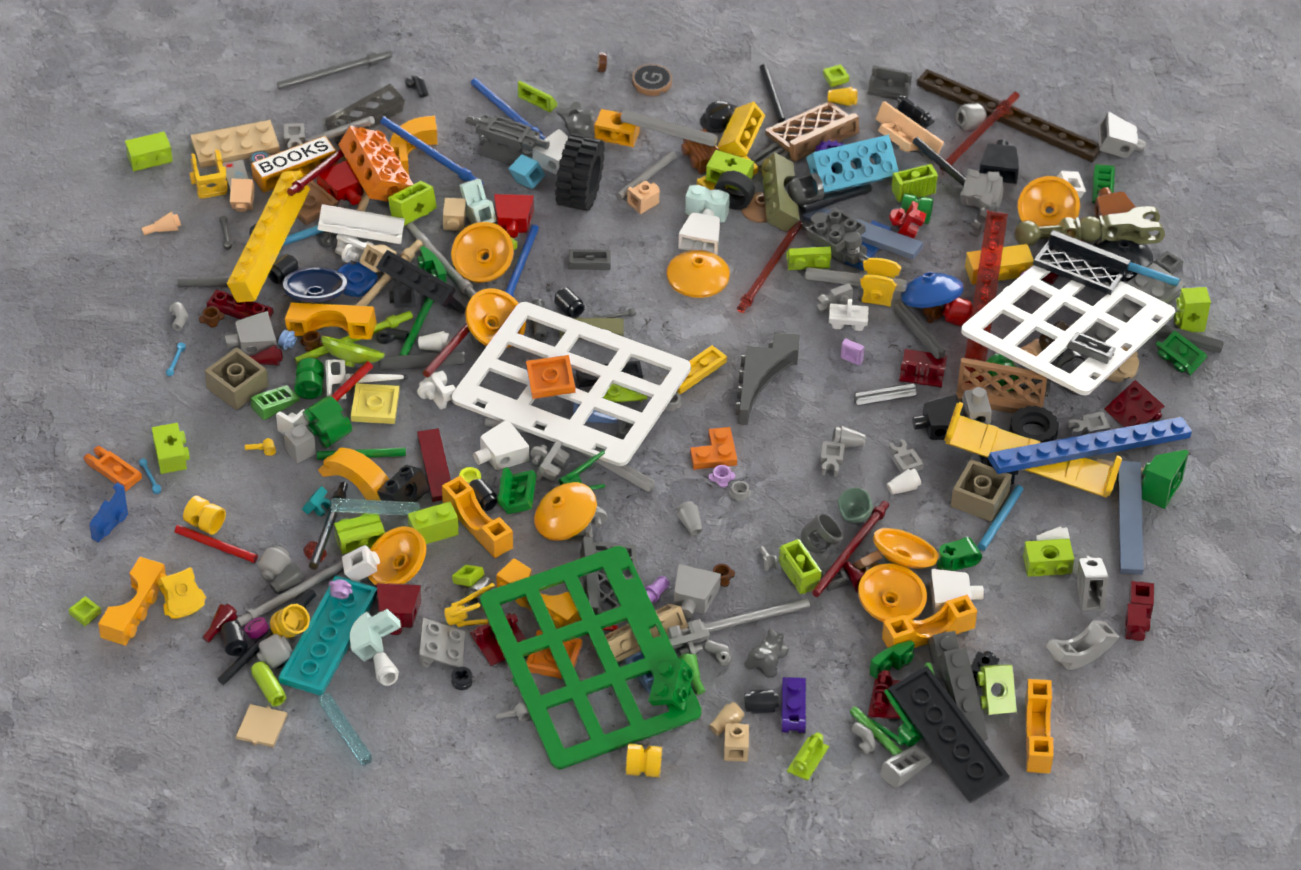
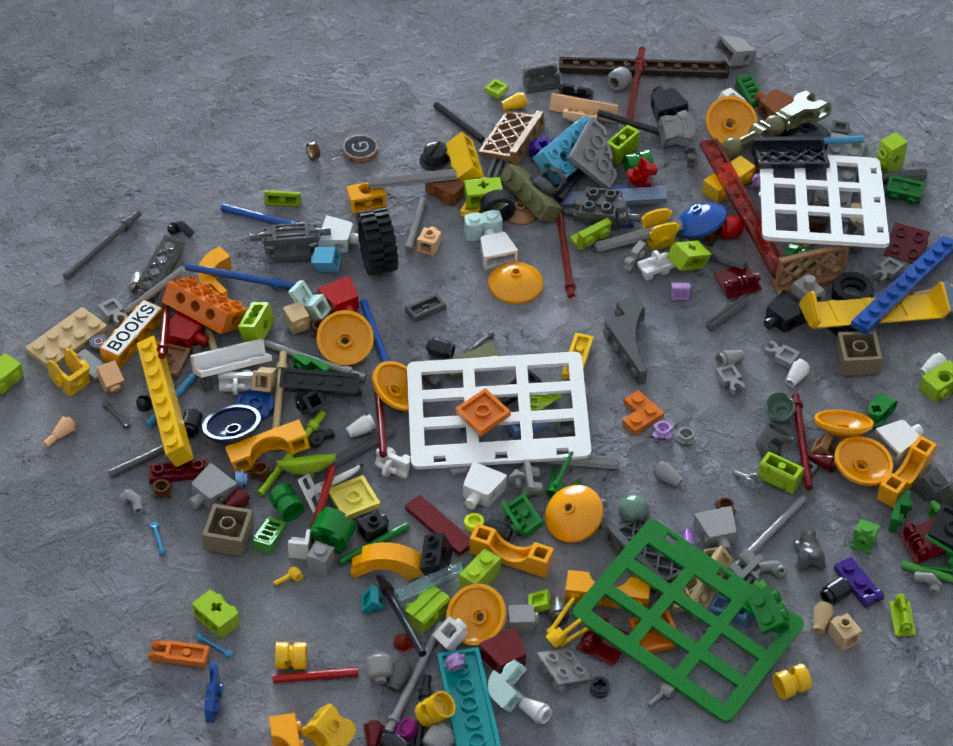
camera: 30 degrees left, 0 degrees up
(371, 435) = (372, 526): none -> black brick
(416, 327) = (334, 421): green bar -> none
(438, 583) = (522, 618): none -> light grey brick
(576, 120) = (337, 204): dark grey animal -> none
(628, 533) = (633, 508): none -> sand green hair
(834, 665) = (865, 536): none -> bright green brick
(870, 179) = (594, 154): none -> light grey plate
(887, 319) = (688, 255): none -> lime brick
(1001, 516) = (883, 374): dark azure bar -> none
(1091, 347) = (860, 210): dark grey tile -> none

